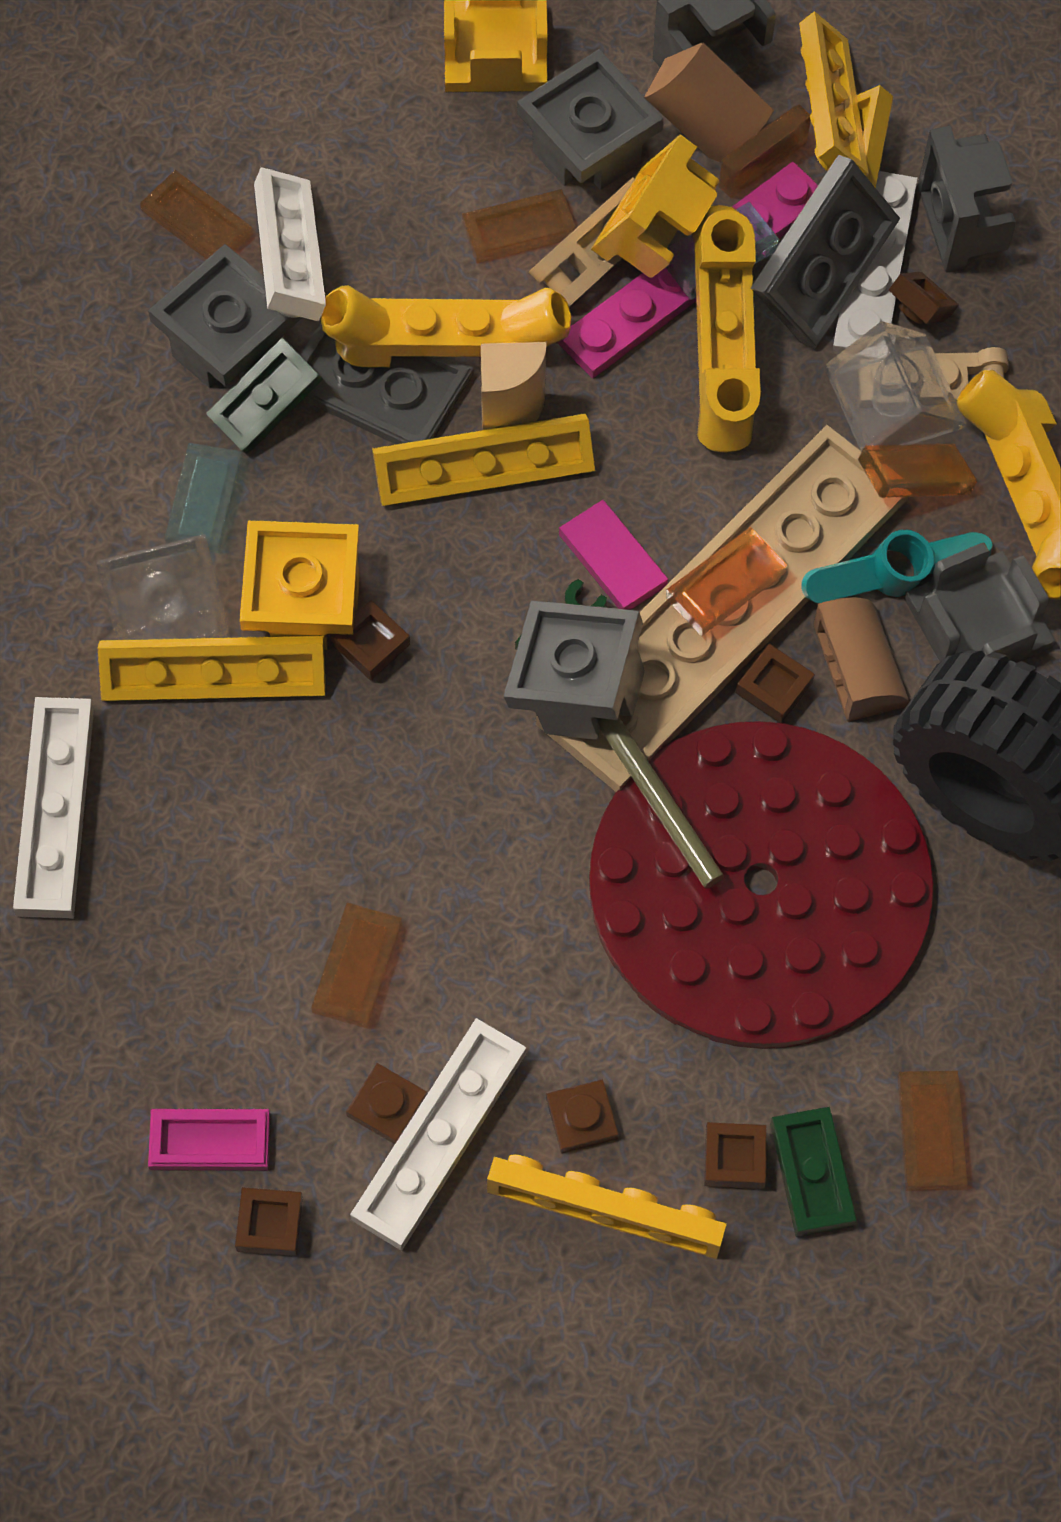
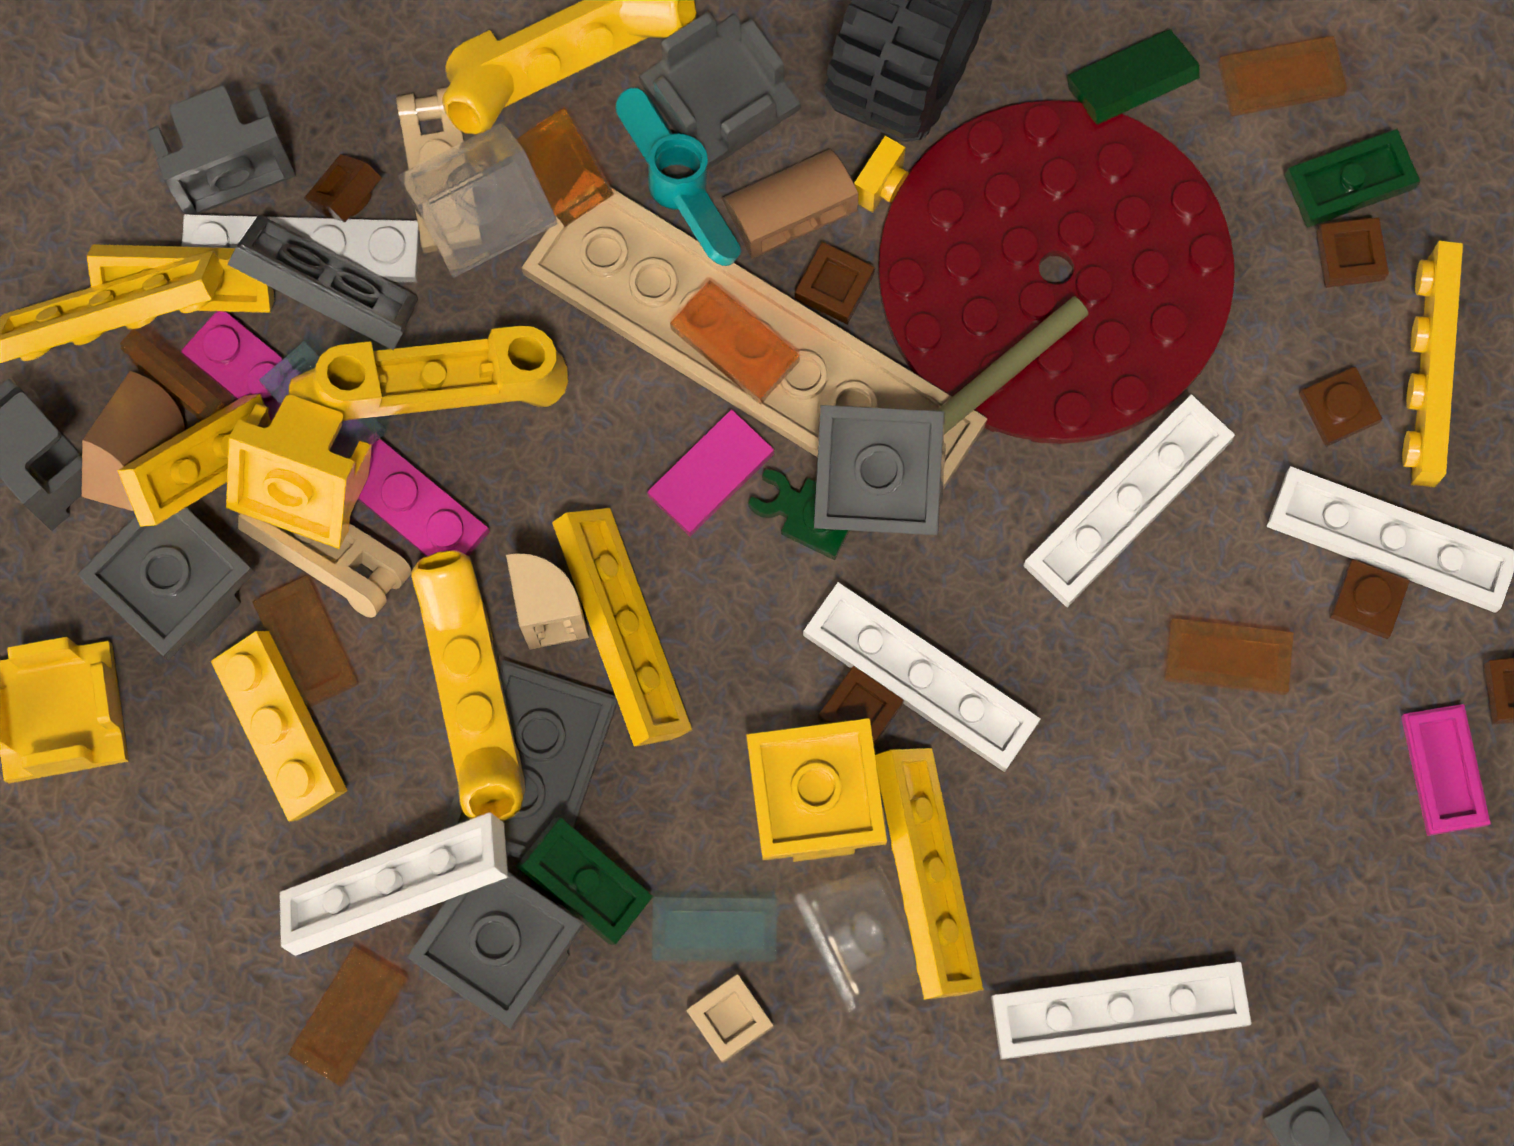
camera: 95 degrees left, 10 degrees up
(124, 494) = (730, 1018): none -> tan plate
(389, 695) = (922, 677): none -> white plate
(450, 194) = (278, 725): none -> yellow plate
(522, 902) = (1128, 500): none -> white plate
(666, 112) = (184, 465): none -> yellow plate
(871, 734) = (881, 175): none -> yellow plate
(946, 984) = (1133, 76): none -> dark green tile

